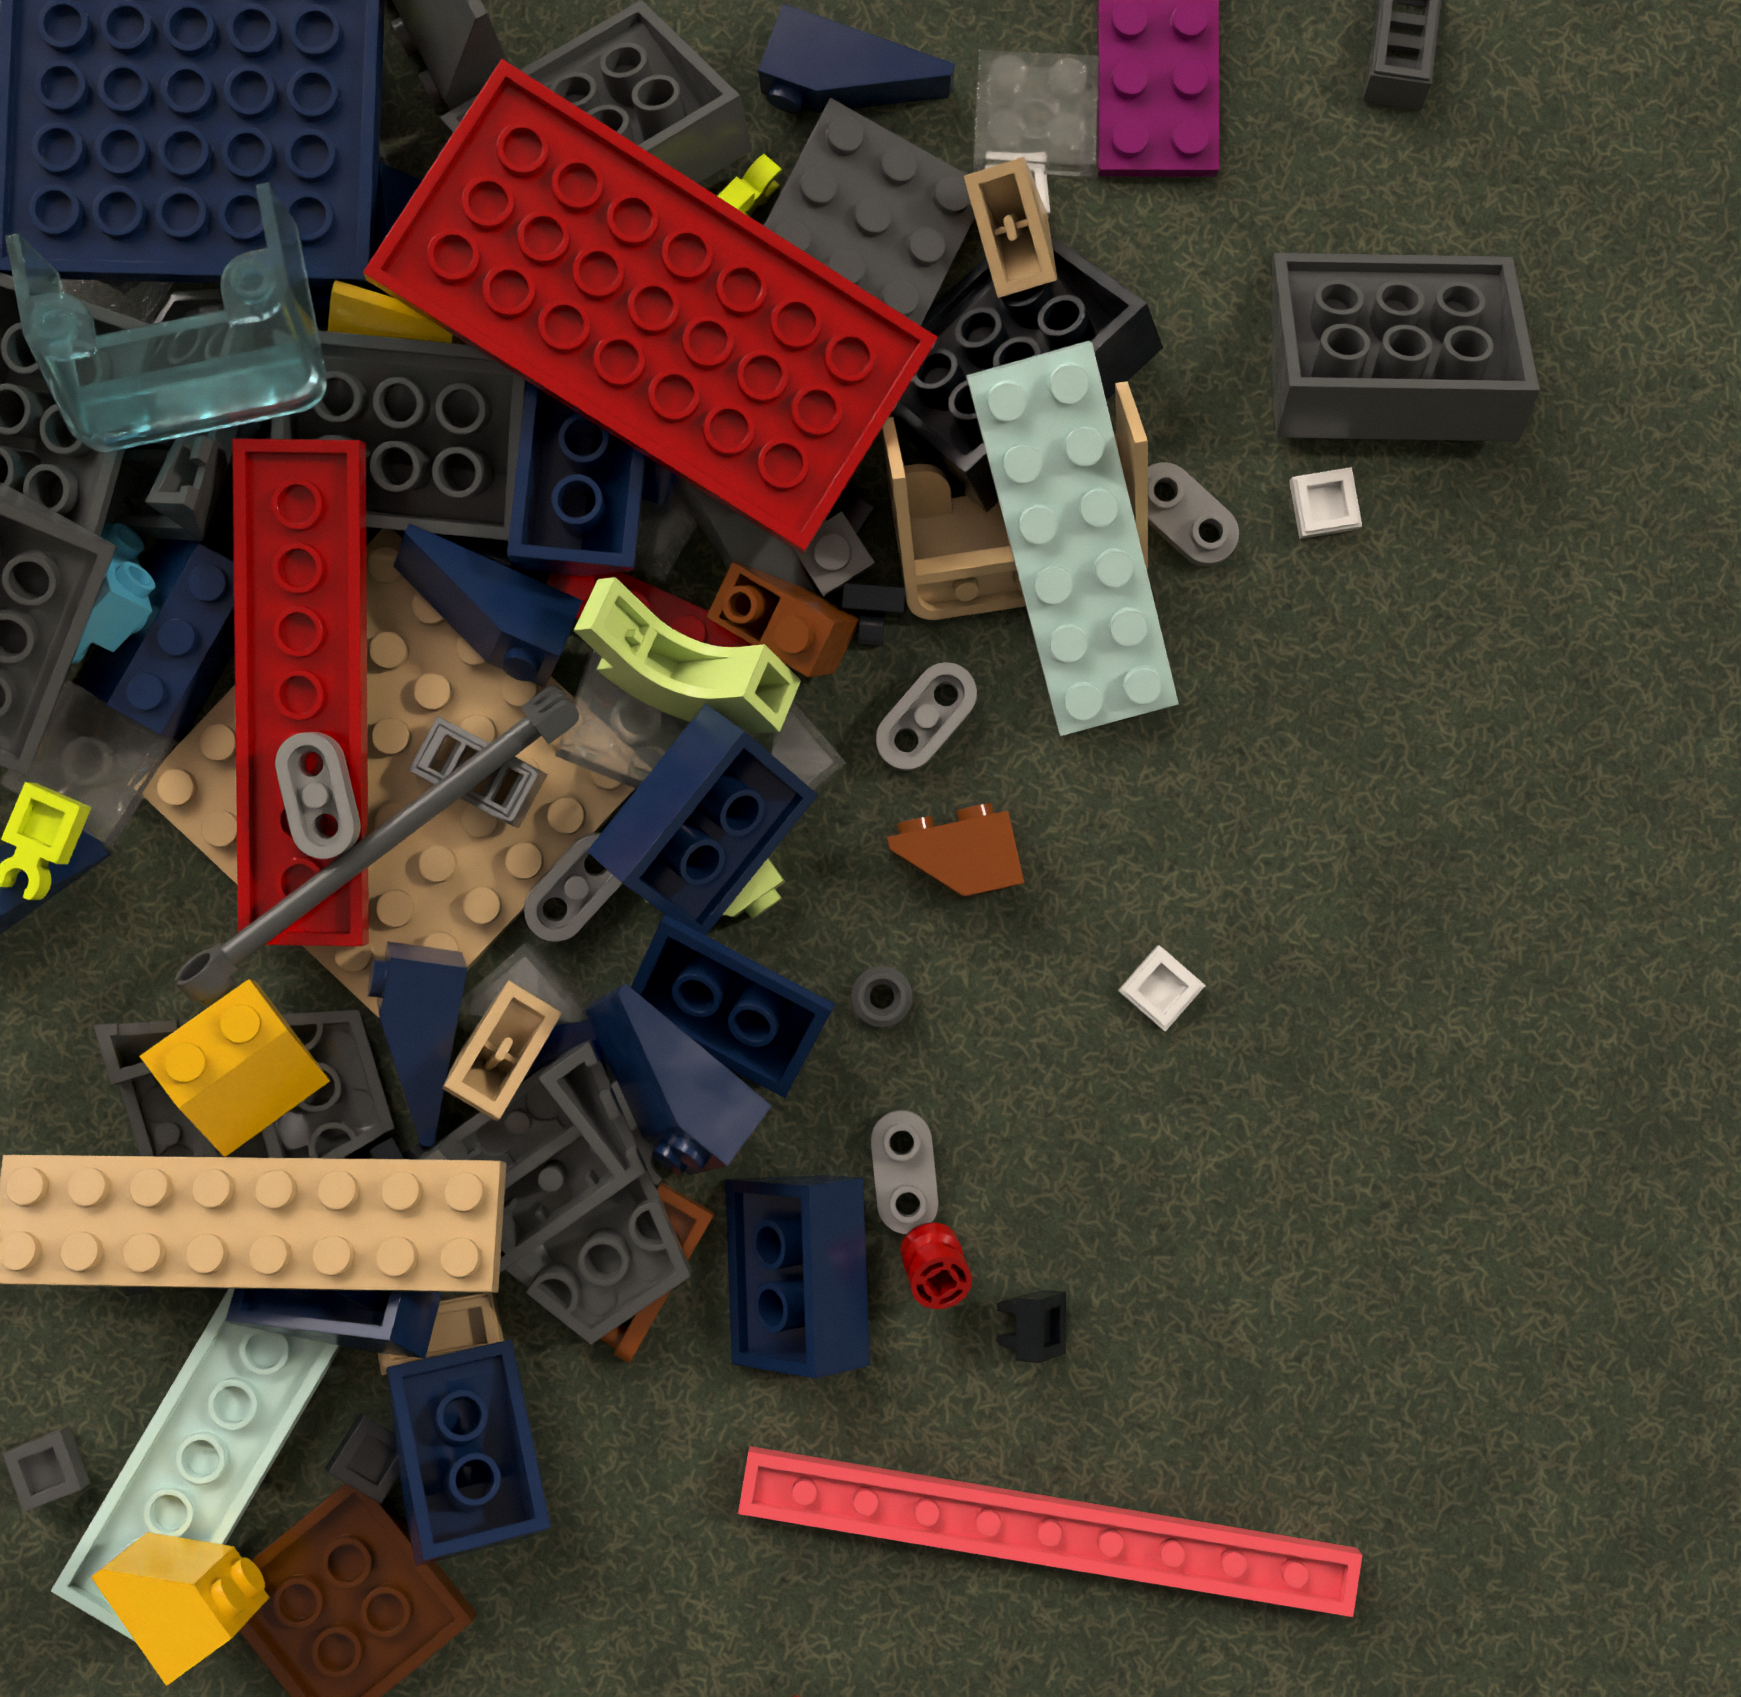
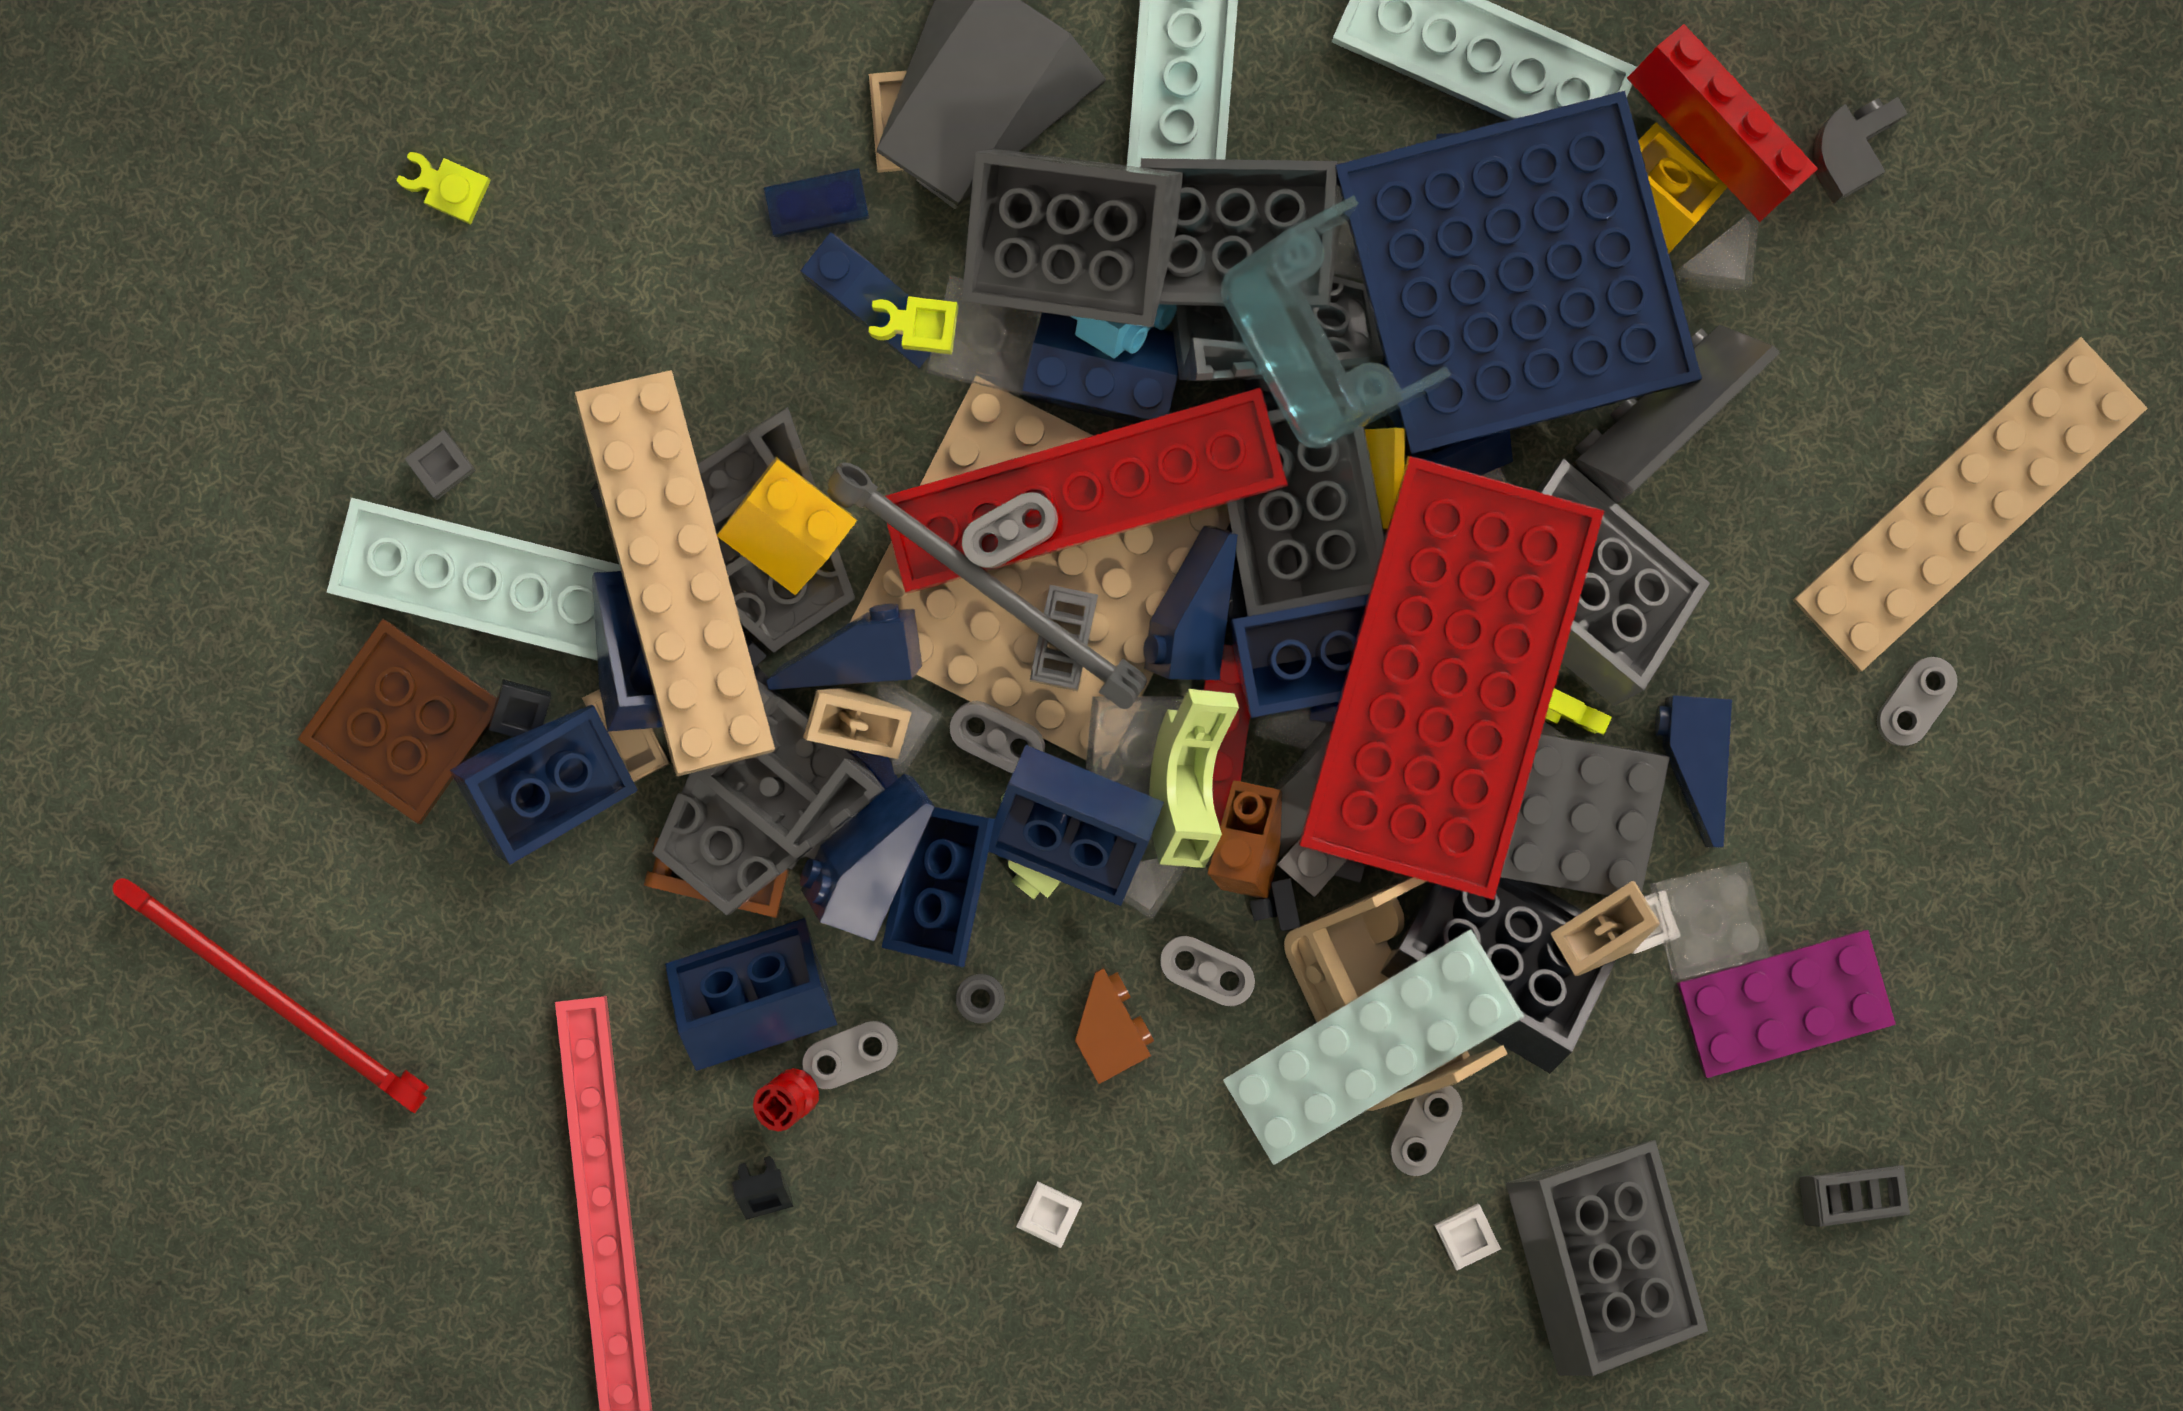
camera: 70 degrees right, 0 degrees up
(181, 1598) = (383, 607): yellow slope -> none

